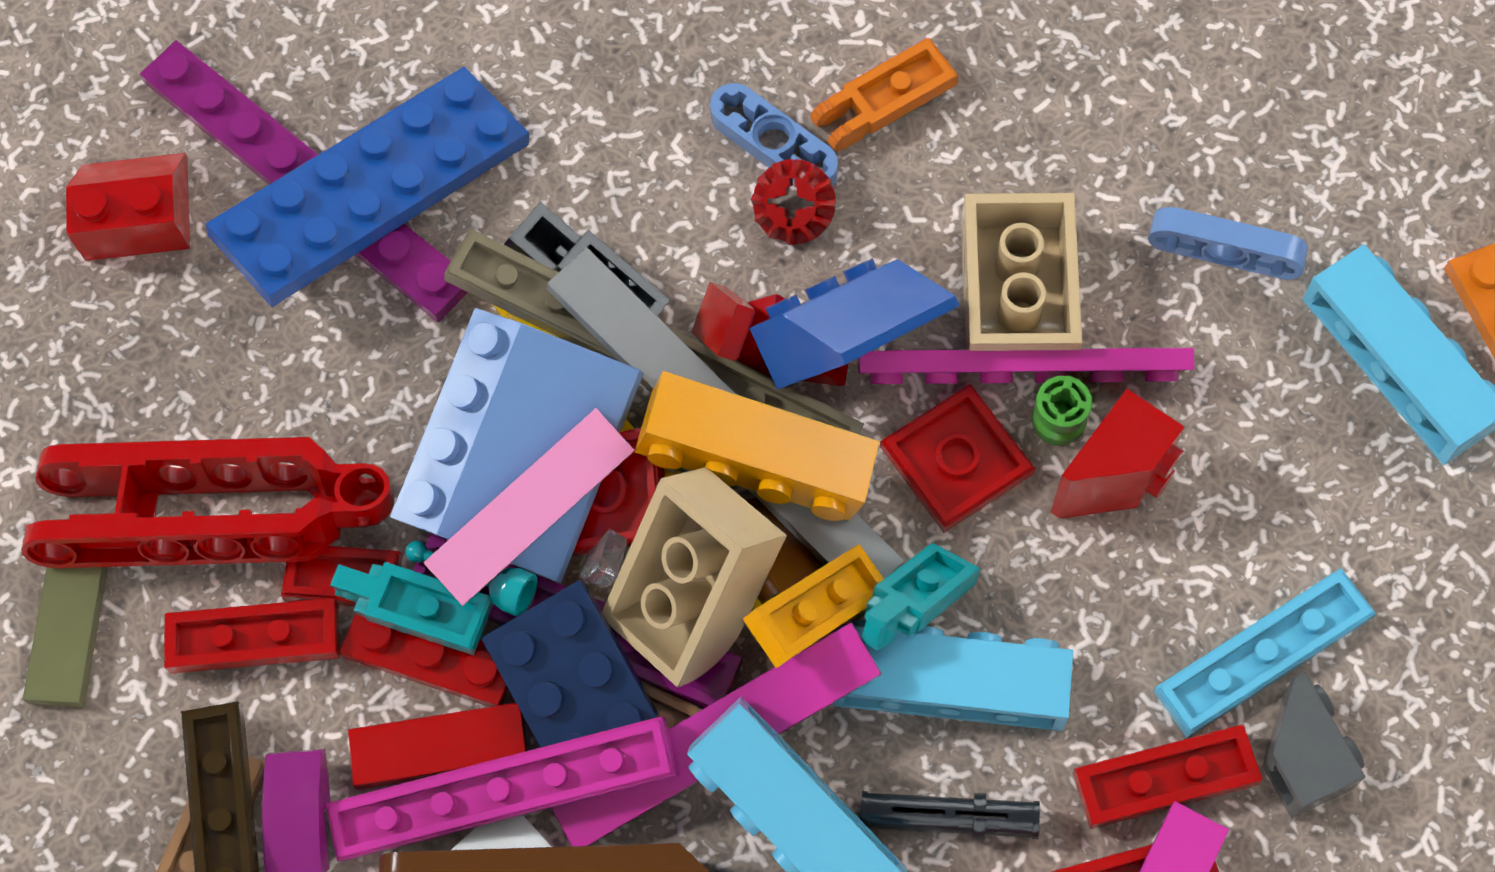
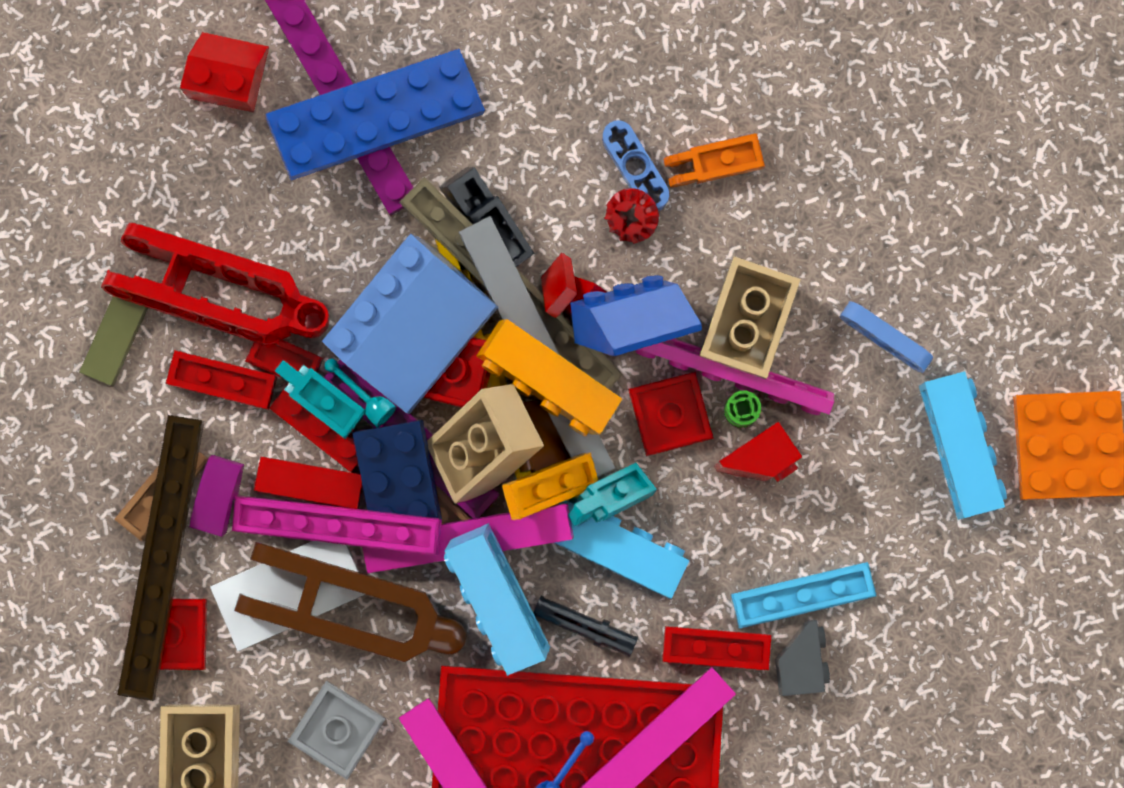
camera: 15 degrees right, 15 degrees up
(529, 506) = (404, 367): bright pink tile -> none
(603, 560) = (436, 412): clear tile -> none

